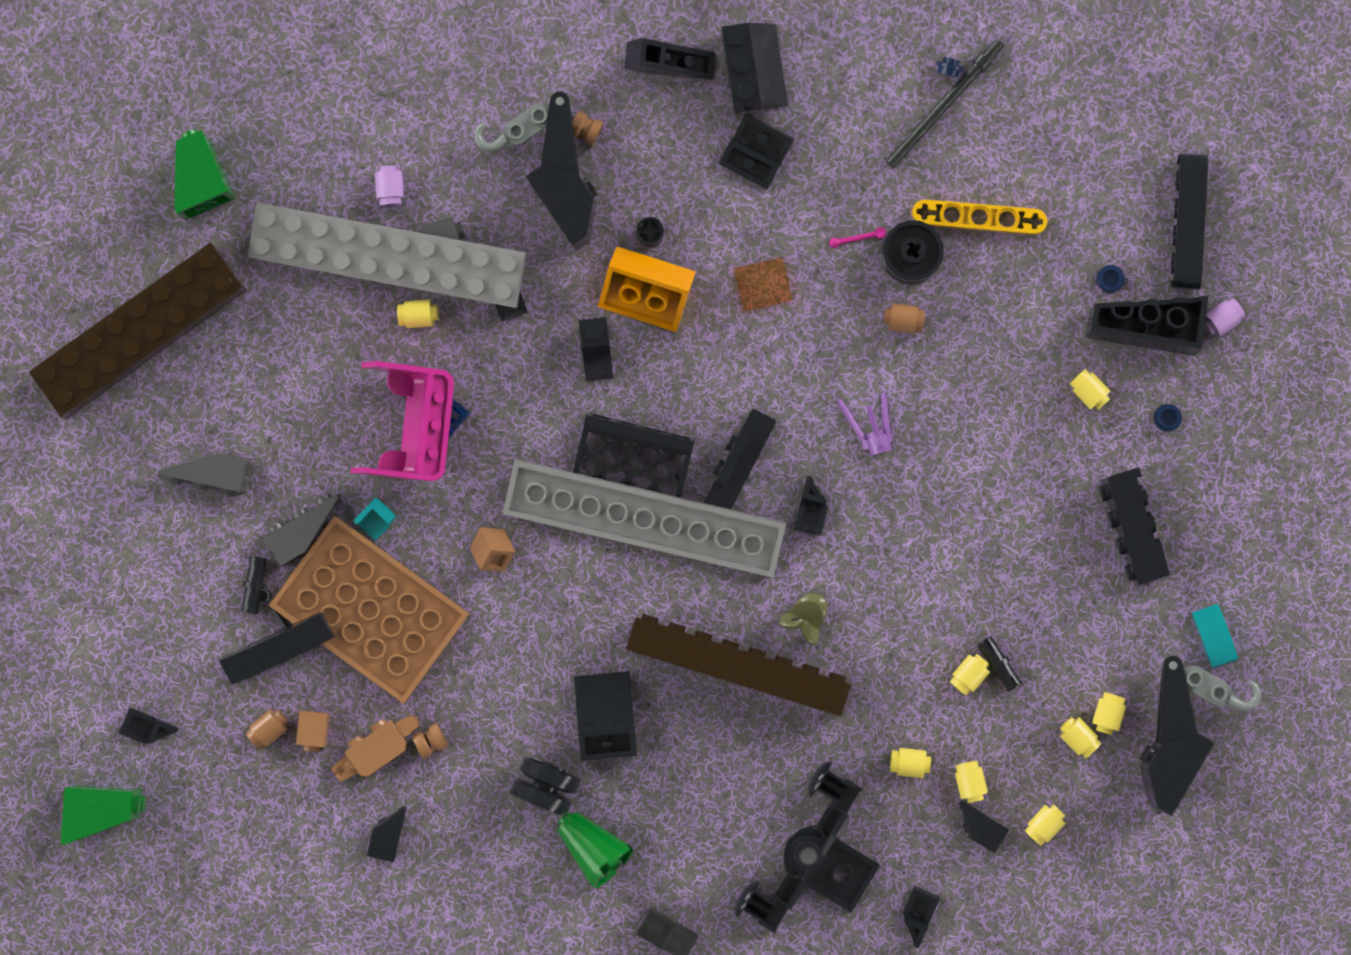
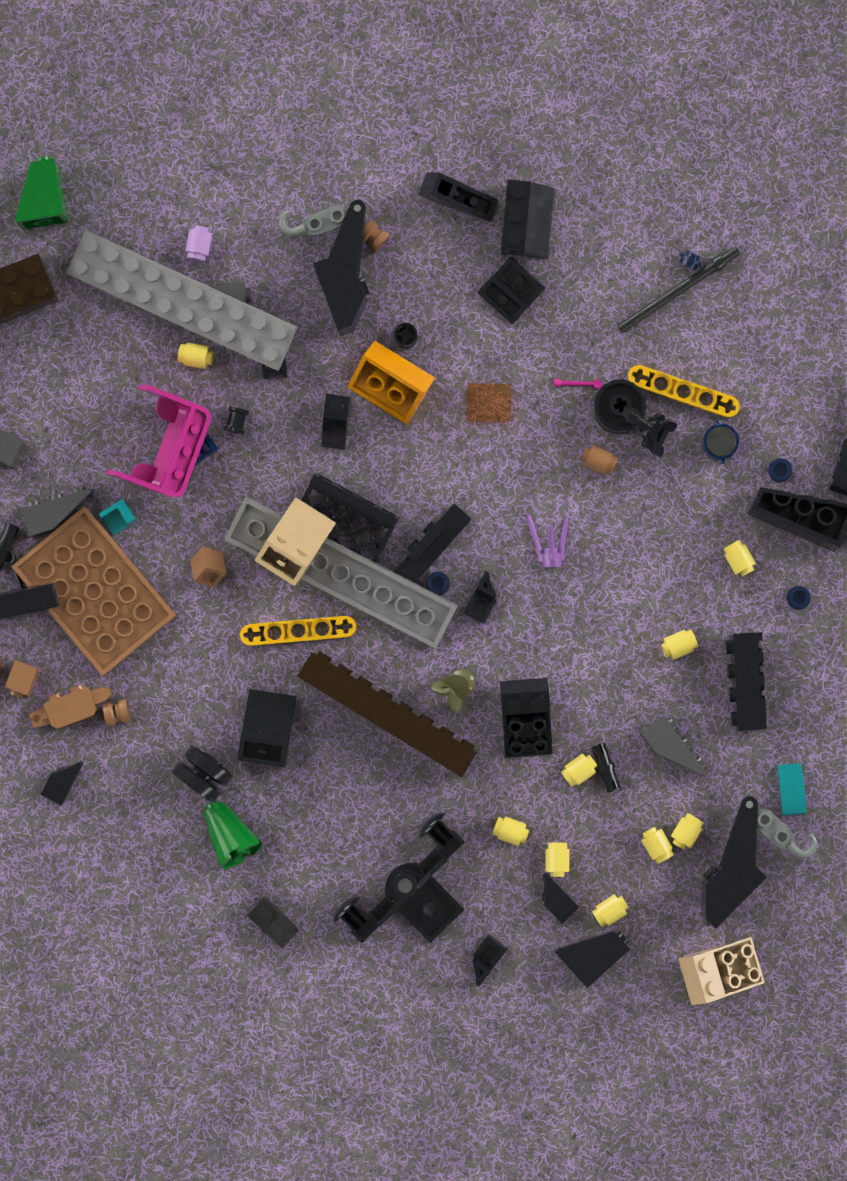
camera: 20 degrees right, 0 degrees up
(482, 375) = (236, 420): none -> black bush
(584, 496) = (295, 541): none -> tan slope
(602, 606) = (286, 627): none -> yellow beam
(756, 503) = (437, 583): none -> dark blue plate
(895, 629) = (526, 717): none -> black slope
(957, 269) = (653, 430): none -> black piece
(1035, 264) = (720, 442): none -> pearl dark grey piece
(1039, 880) = (593, 955): none -> black slope
(1047, 504) = (679, 644): none -> light yellow brick
(1062, 619) = (666, 742): none -> dark grey slope
(1187, 862) = (721, 971): none -> tan slope

